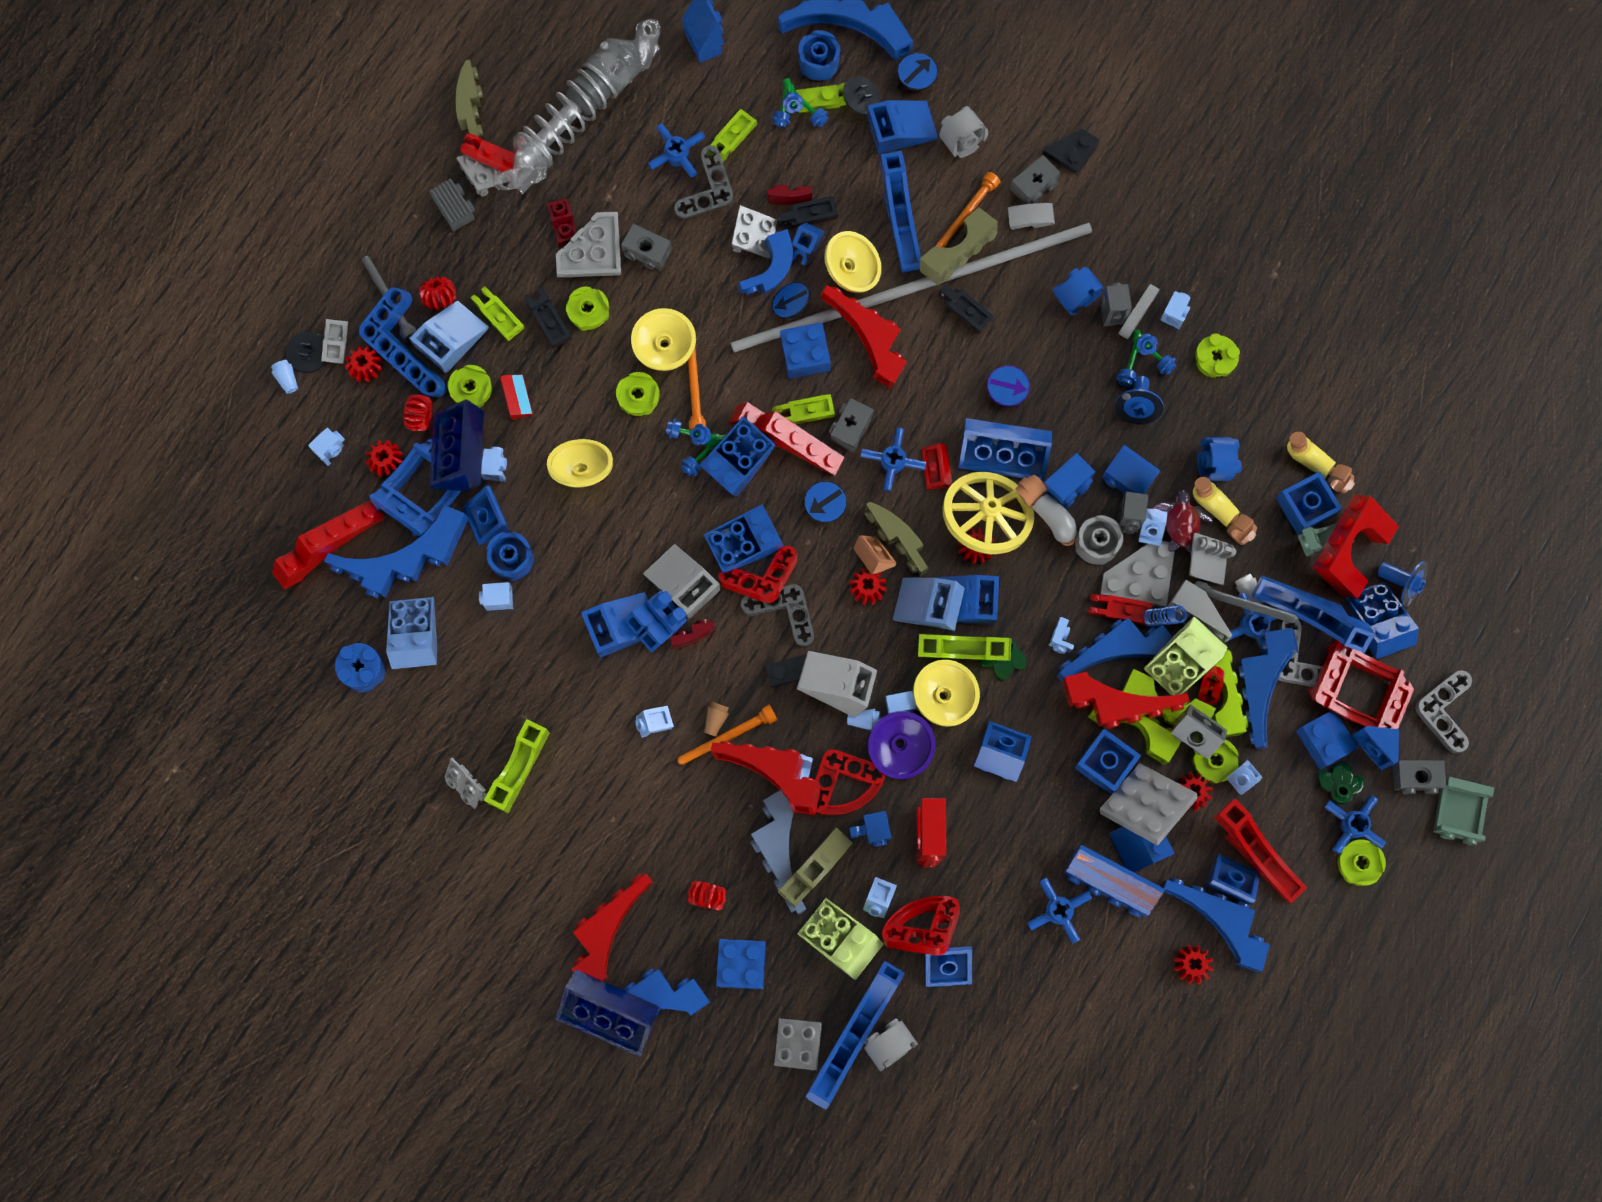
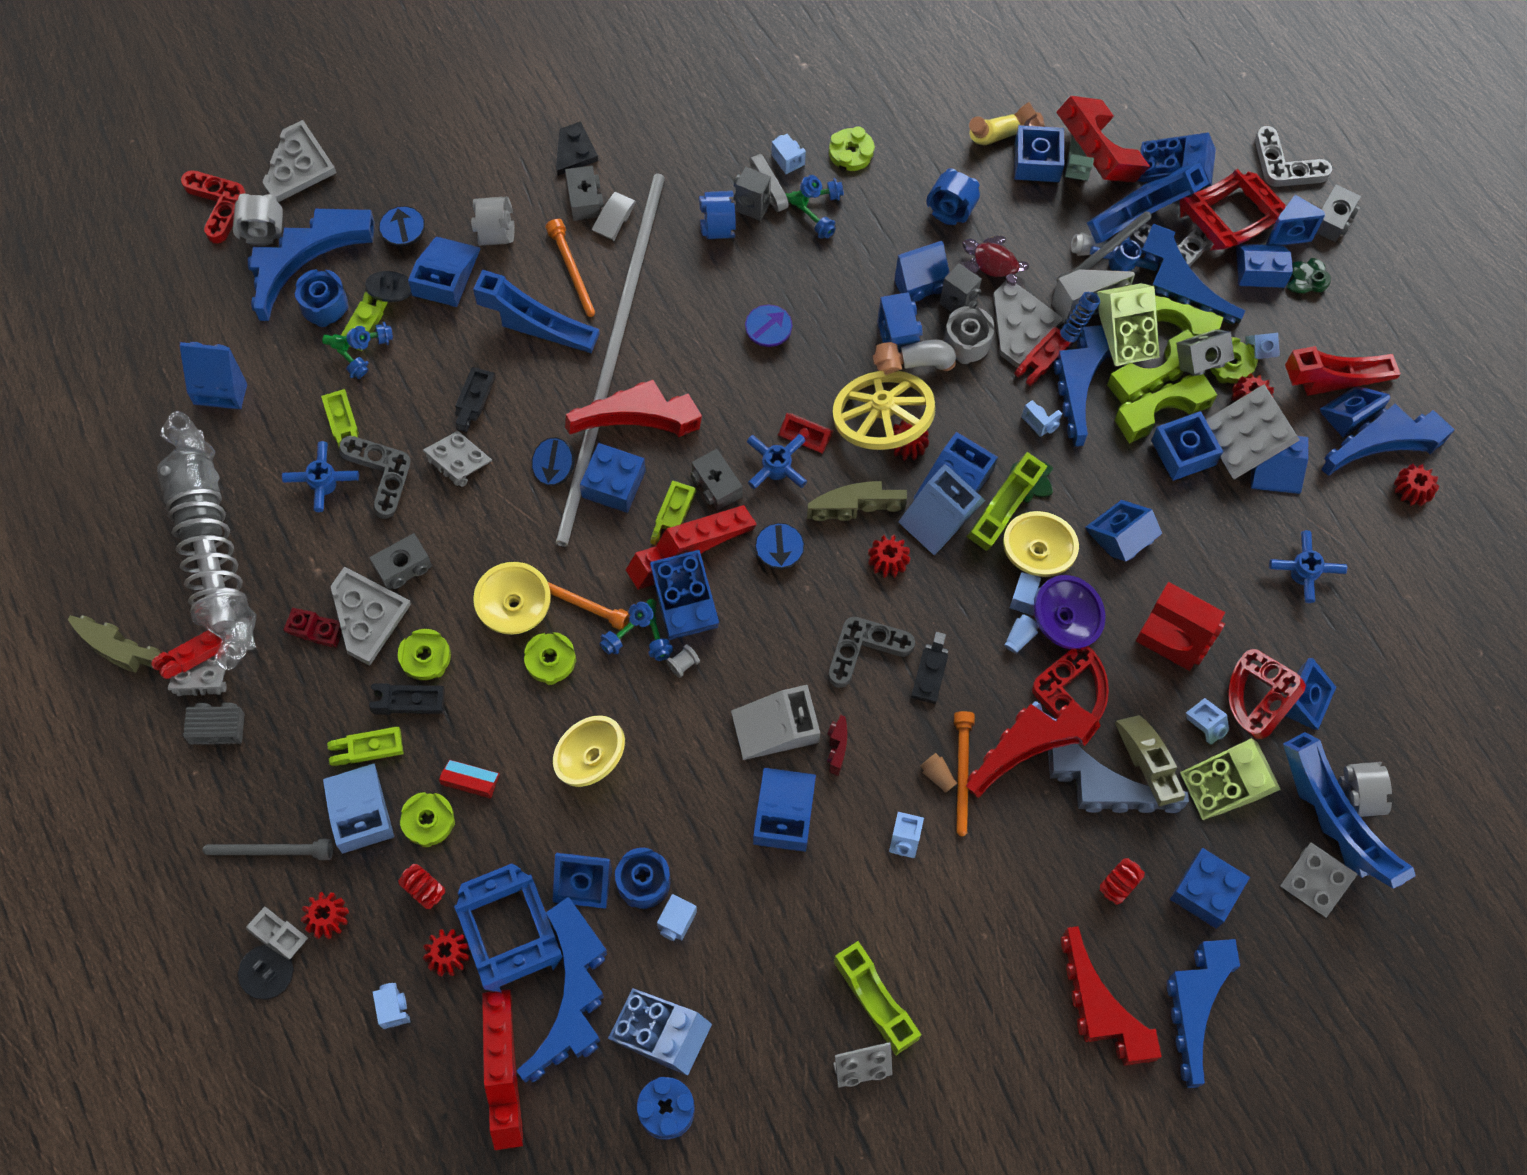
camera: 60 degrees left, 10 degrees down
(285, 376) = (278, 1009): light blue cone -> none
(397, 348) = (334, 869): blue beam -> none
(437, 293) = (302, 792): red gear -> none
(457, 447) = (489, 865): clear blue slope -> none
(493, 464) = (530, 841): light blue brick -> none
(607, 1013) = (1199, 1045): clear blue slope -> none
(658, 619) = (805, 768): blue hips -> none
(691, 487) = (683, 661): none -> light grey bush
(744, 540) = (771, 638): blue slope -> none
(767, 582) = (828, 642): red beam -> none
(781, 254) = (509, 451): blue arch -> none
(782, 196) = (442, 406): dark red slope -> none
(807, 241) = (502, 412): blue brick -> none
(837, 682) = (975, 631): light grey slope -> none
(852, 262) = (554, 384): light yellow dish -> none
(873, 554) = (861, 532): nougat slope -> none
(875, 828) = (1138, 686): blue brick -> none
(940, 262) = (608, 310): olive arch -> none
(966, 308) = (666, 318): black hinge -> none
(1005, 449) = (828, 363): blue slope -> none
(1112, 881) = (1304, 505): slope -> none
(1115, 705) = (1140, 406): red arch -> none
(1139, 404) = (860, 228): piece -> none
(1153, 527) = (989, 284): light blue brick -> none
(1209, 558) = (1040, 258): light grey hinge -> none
(1215, 686) = (1167, 319): red beam -> none
(1217, 503) = (997, 223): piece -> none
(1349, 831) = (1354, 285): blue bar -> none
(1372, 870) = (1387, 312): lime plate -> none
(1412, 582) = (1152, 123): blue piece -> none
(1462, 810) = (1385, 201): sand green panel -> none

